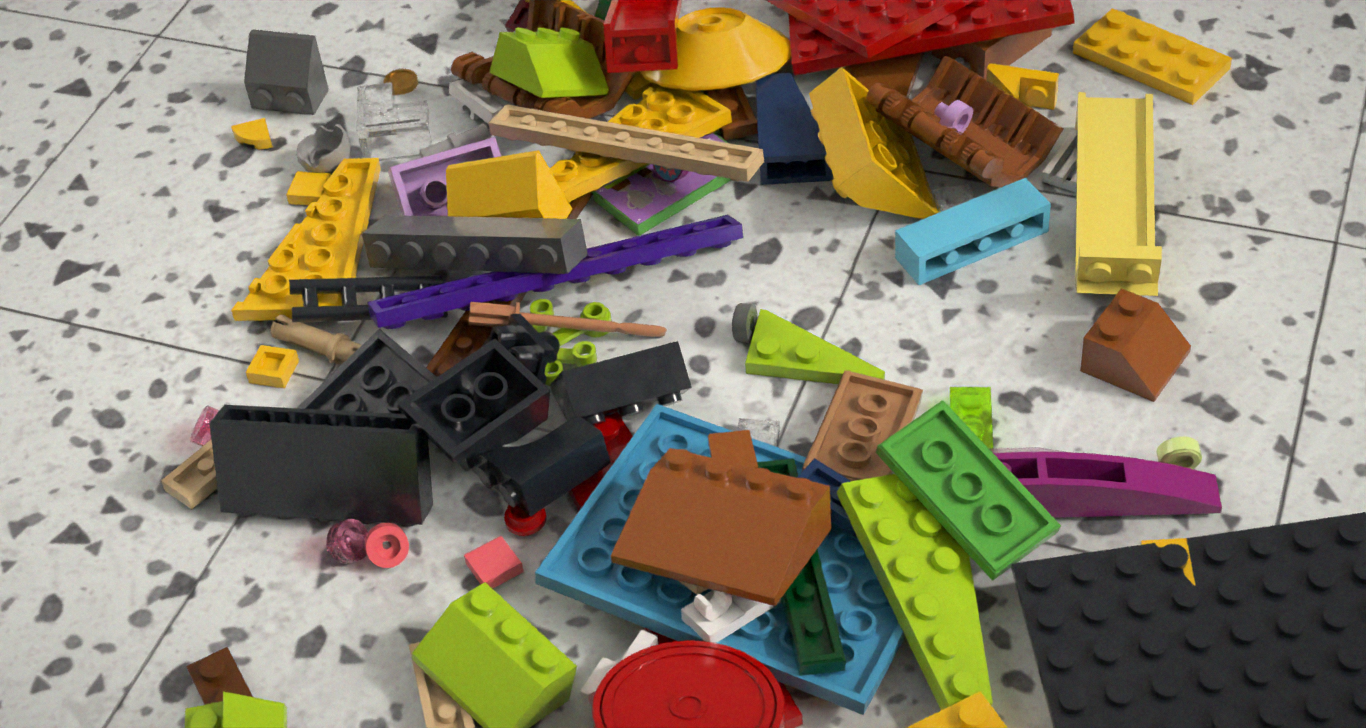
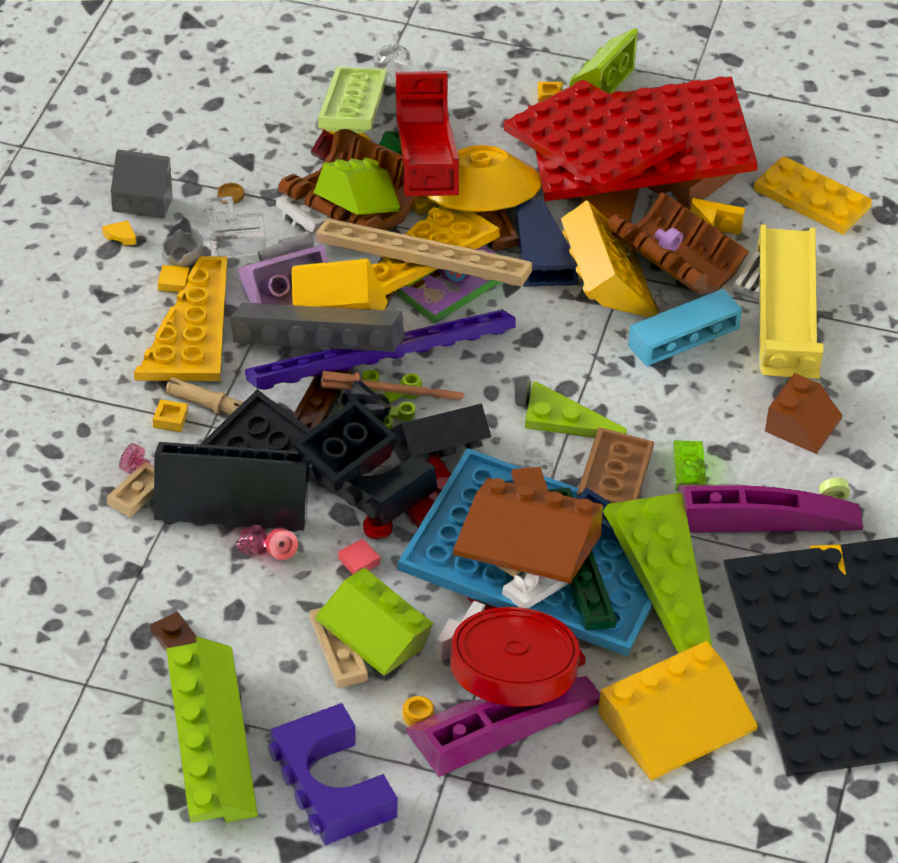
camera: 10 degrees left, 0 degrees up
(348, 288) = (224, 358): black bar -> none
(968, 489) = (693, 509): bright green tile -> none

